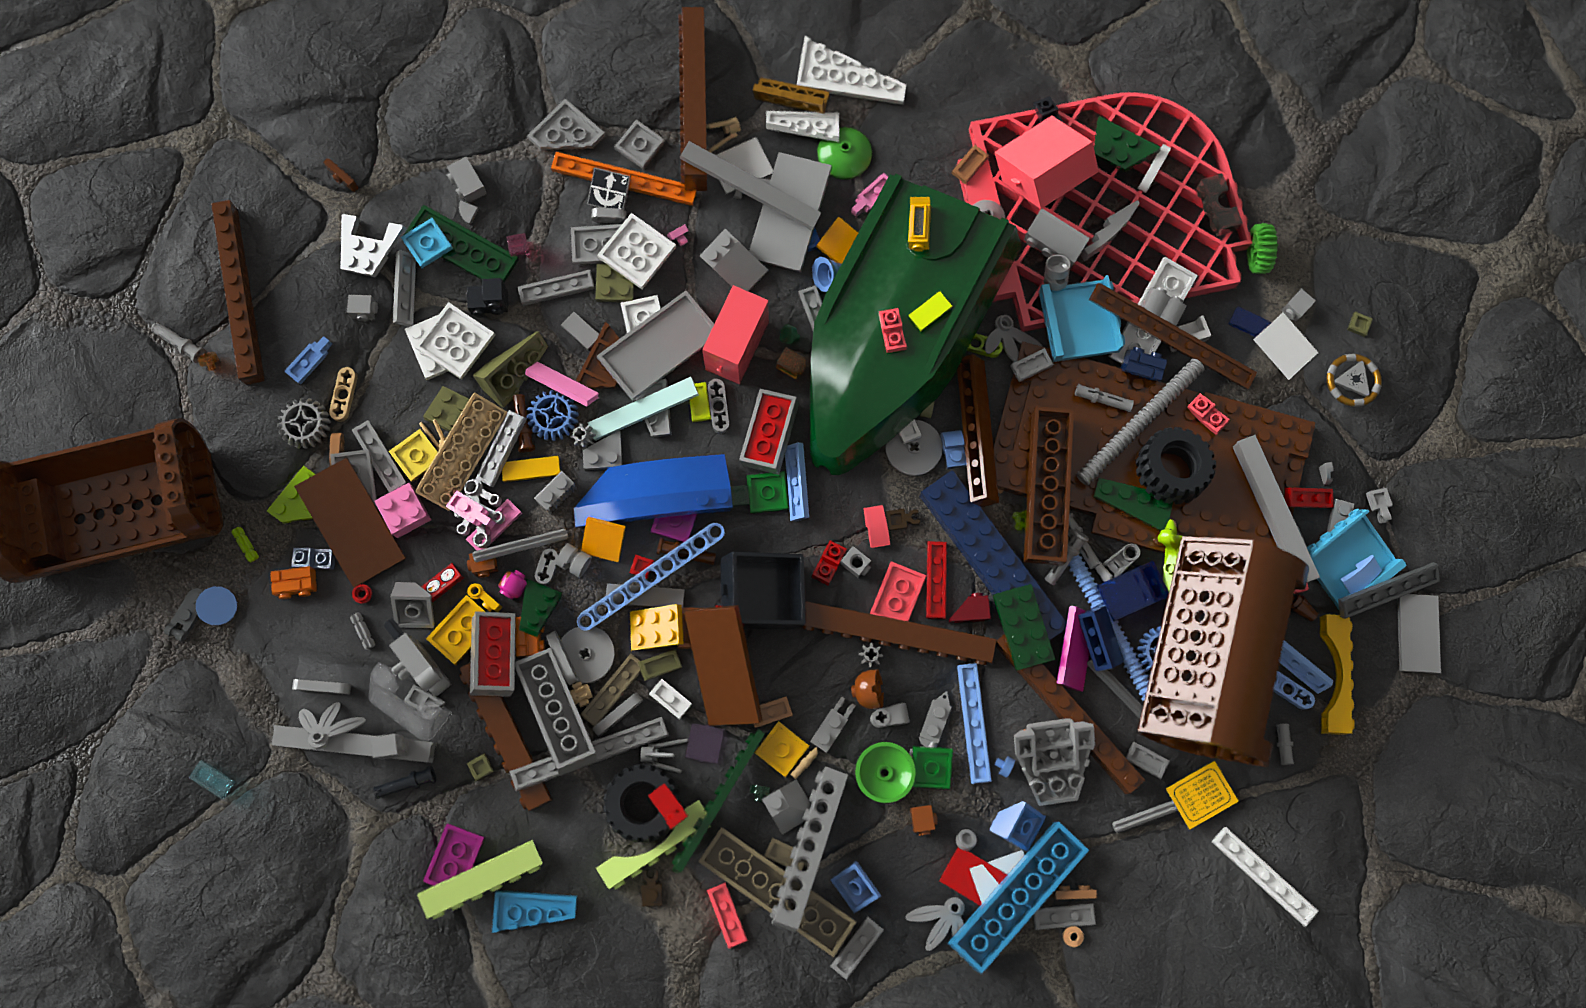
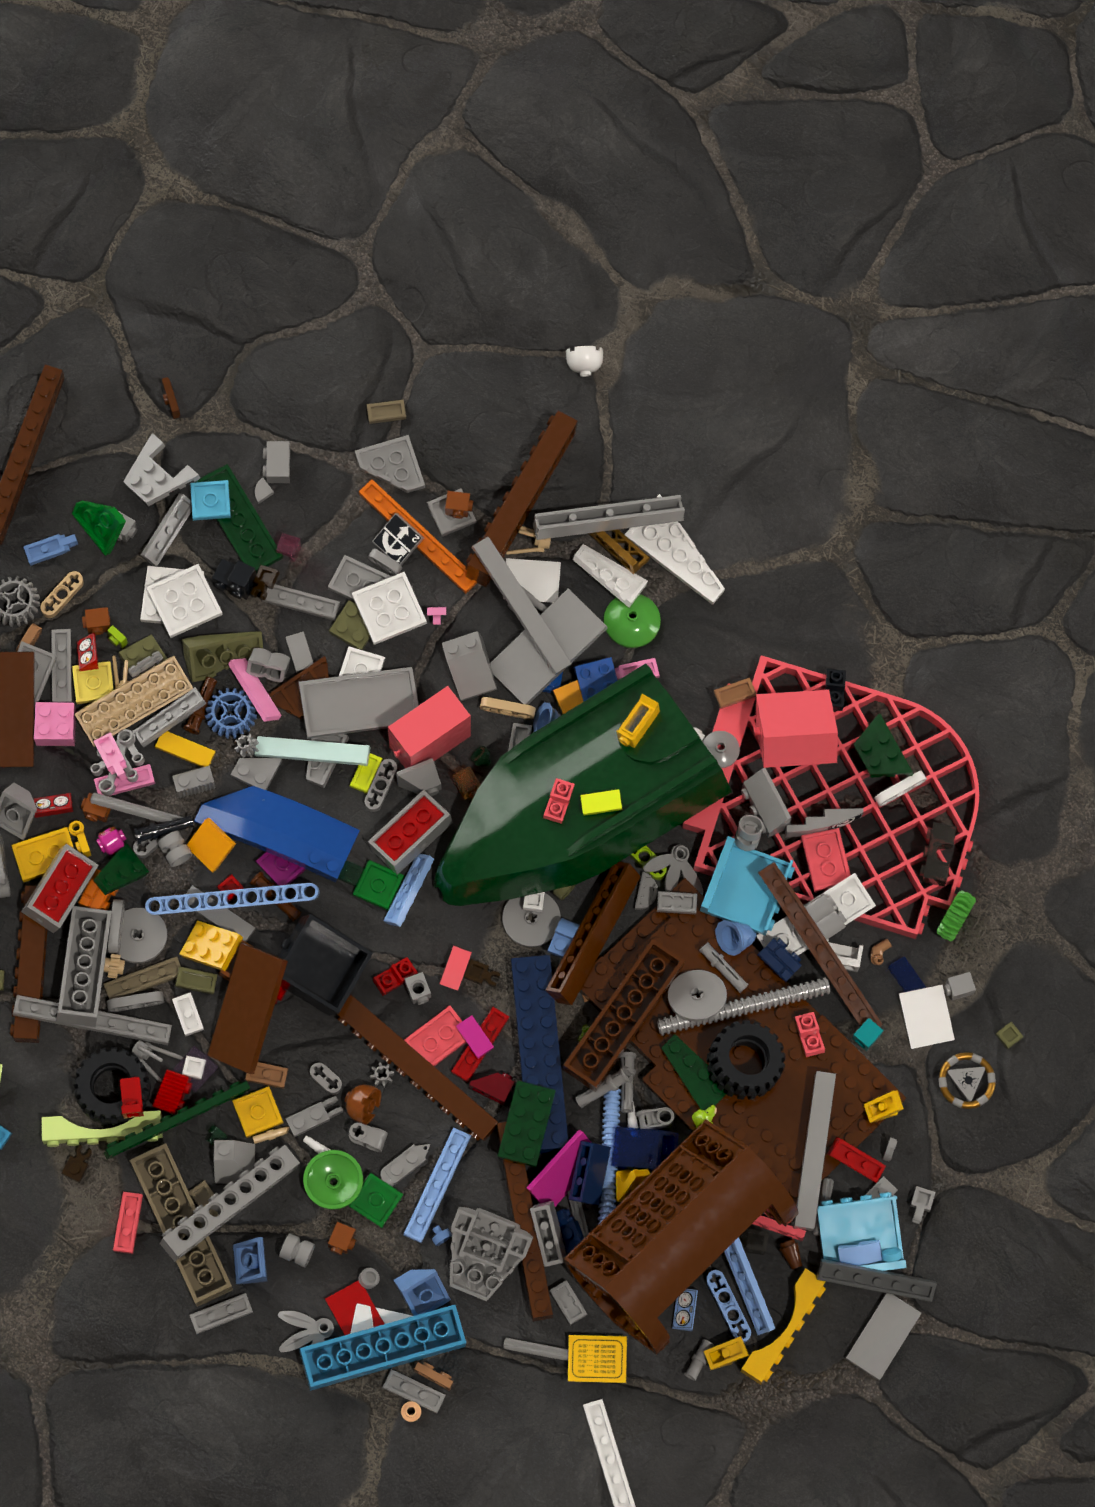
camera: 30 degrees right, 5 degrees down
(342, 313) = (100, 522): none -> green plate
(387, 400) = (97, 620): none -> dark orange brick
(396, 432) = (87, 653): none -> slope
(414, 405) = (117, 637): none -> lime plate
(453, 414) = (145, 664): none -> light grey axle
(514, 285) = (264, 579): none -> dark brown plate
(534, 90) = (386, 411): none -> dark tan tile
(547, 558) = (152, 829): none -> black pin
(560, 356) = (267, 664): none -> light grey brick
(643, 132) = (458, 504): none -> dark orange brick
(698, 776) = (172, 1092): none -> red brick
(703, 743) = (194, 1067): none -> white tile
(750, 380) = (420, 777): none -> light grey slope
(776, 75) = (608, 517): none -> light grey tile
(786, 281) = (507, 708): none -> tan beam
(825, 681) = (323, 1081): none -> light grey beam
(847, 216) = (595, 677): none -> blue bracket
(853, 750) = (315, 1145): none -> white animal
(891, 853) = (297, 1250): none -> light grey wheel
(929, 576) = (474, 1037): none -> dark pink tile
(996, 371) = (647, 892): none -> light grey tile
(1097, 367) = (734, 936): none -> medium blue piece
(1098, 711) = (548, 1233): none -> light grey brick
(1099, 447) = (687, 1005): none -> light grey piece
(1116, 702) = (569, 1229): none -> dark blue hinge
(1129, 260) = (825, 858): none -> coral tile
(1137, 627) = (627, 1181): none -> yellow slope
(1213, 315) = (877, 952): none -> medium nougat arm
(1251, 388) = (867, 1034): none -> teal panel
(1307, 726) = (726, 1353): none -> yellow slope
(1308, 439) = (884, 1107): none -> yellow slope
(1387, 561) = (891, 1254): none -> medium azure tile

